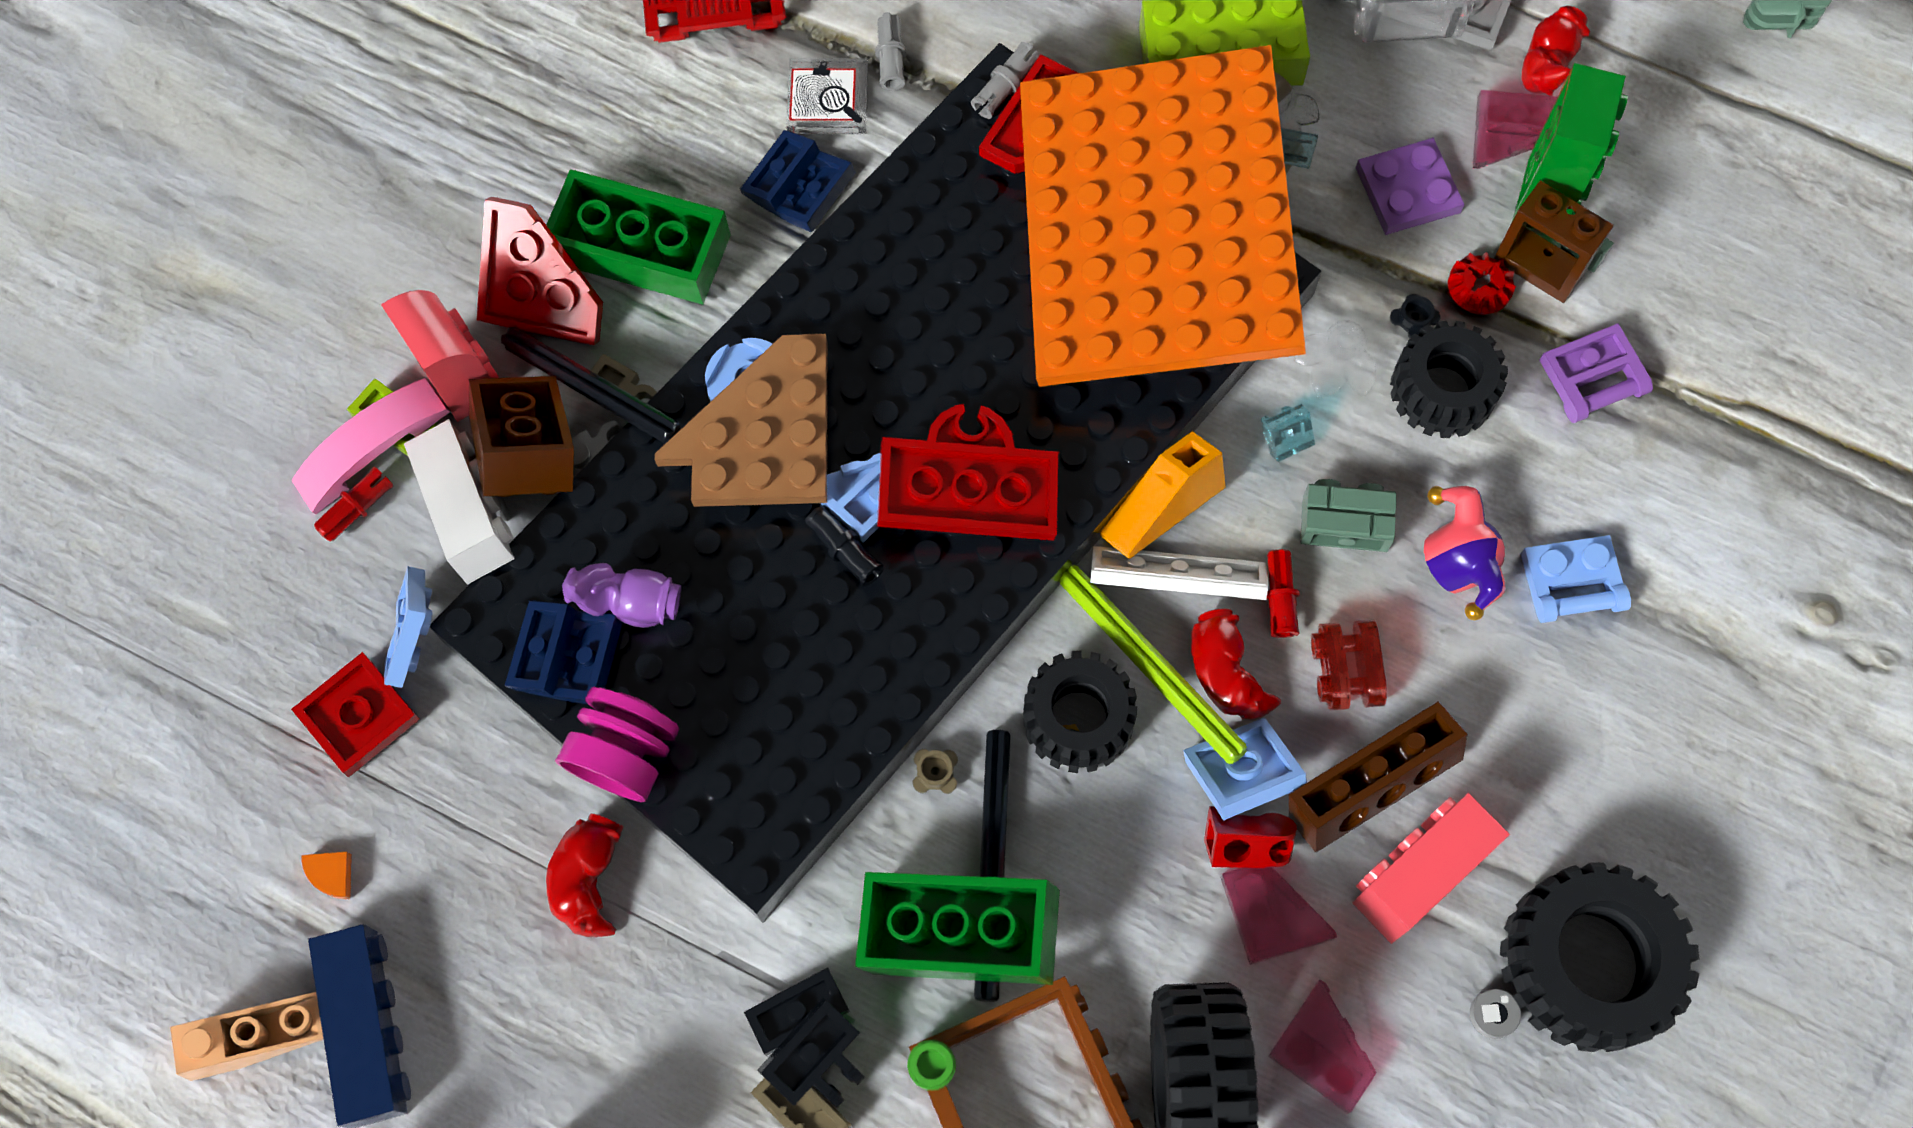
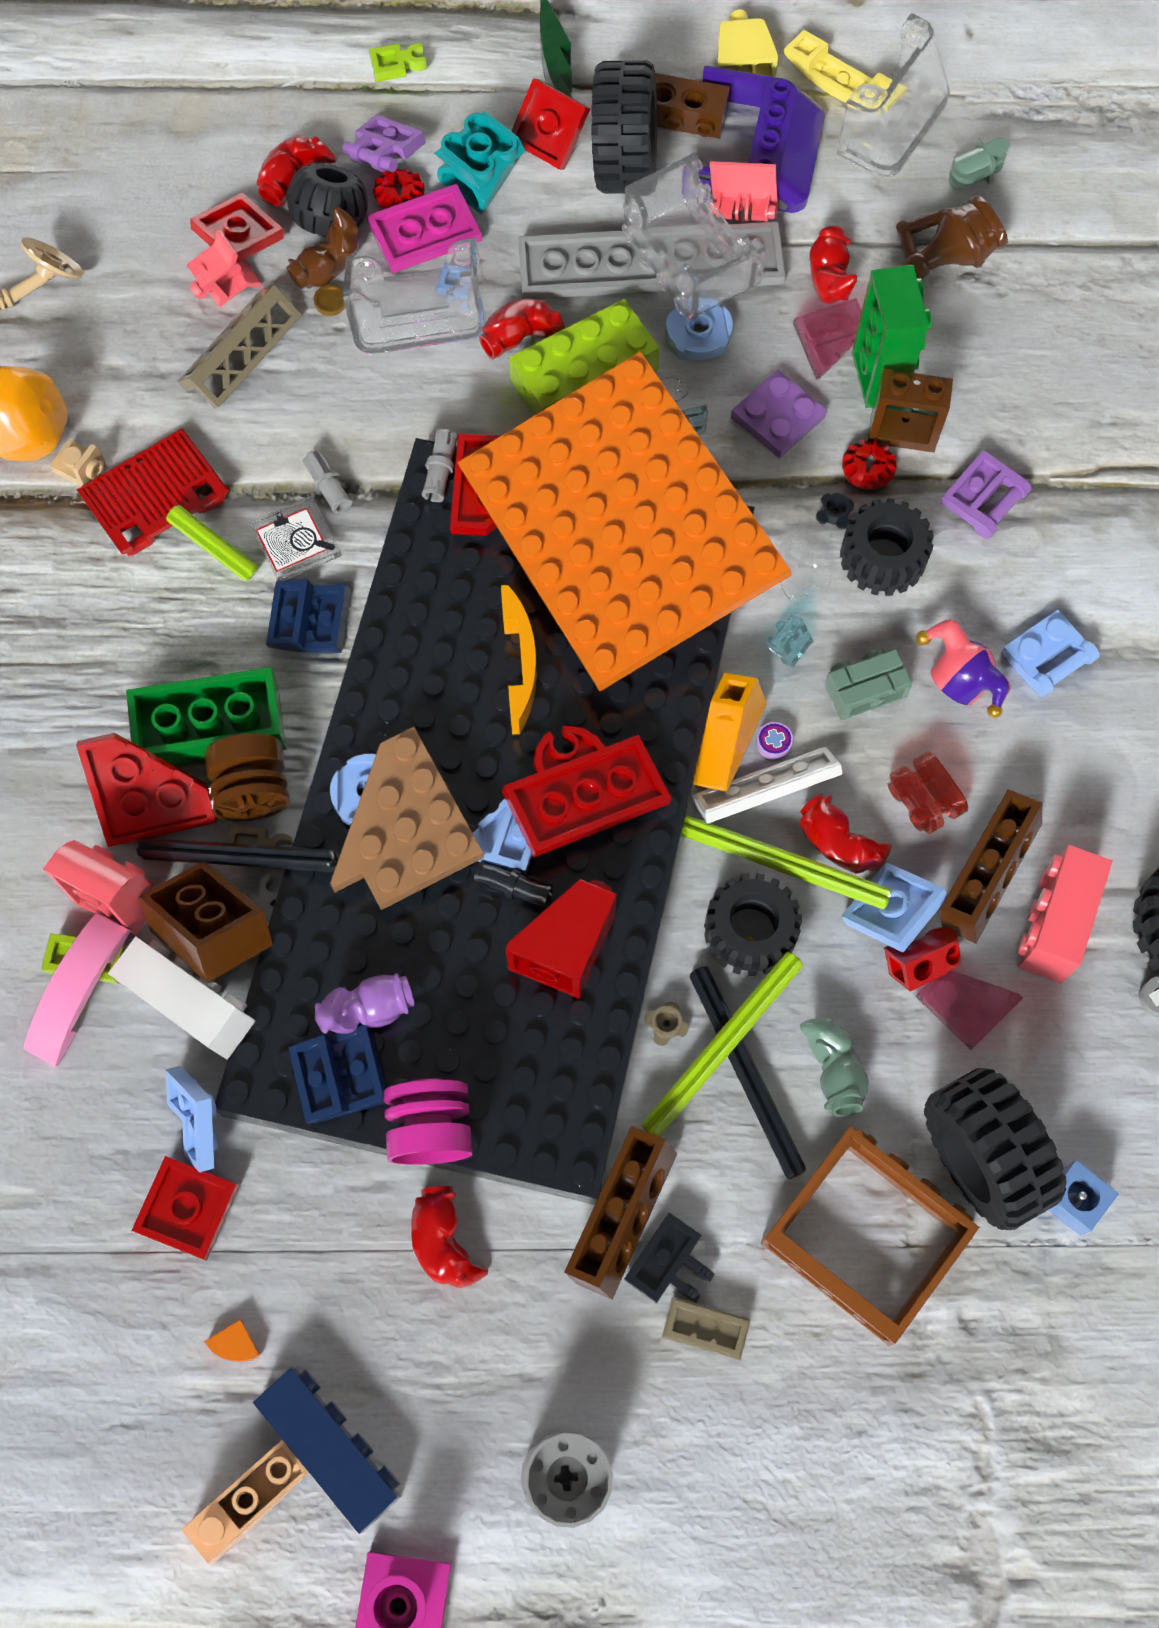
camera: 30 degrees left, 0 degrees up
(352, 505) = (88, 1043): red axle -> none
(642, 312) = (246, 777): none -> reddish brown wheel
(740, 62) = (212, 543): none -> lime axle
(775, 942) = (621, 1212): none -> reddish brown brick
(810, 1052) = (694, 1283): black hinge -> none
(863, 625) = (565, 938): none -> red slope
(931, 1065) = (790, 1242): bright green tile -> none
(956, 357) = (515, 622): none -> light orange slope
(958, 927) = (753, 1130): green brick -> none
(981, 819) = (722, 1044): none -> lime axle
(1092, 919) = (843, 1074): none -> sand green animal
(1213, 530) = (774, 740): none -> tile
(1282, 595) = (851, 764): red axle -> none
(1324, 1052) = (1058, 1085): clear pink wing -> none
(1363, 77) = (697, 345): none -> light blue plate
(1720, 82) = (963, 236): none -> reddish brown piece

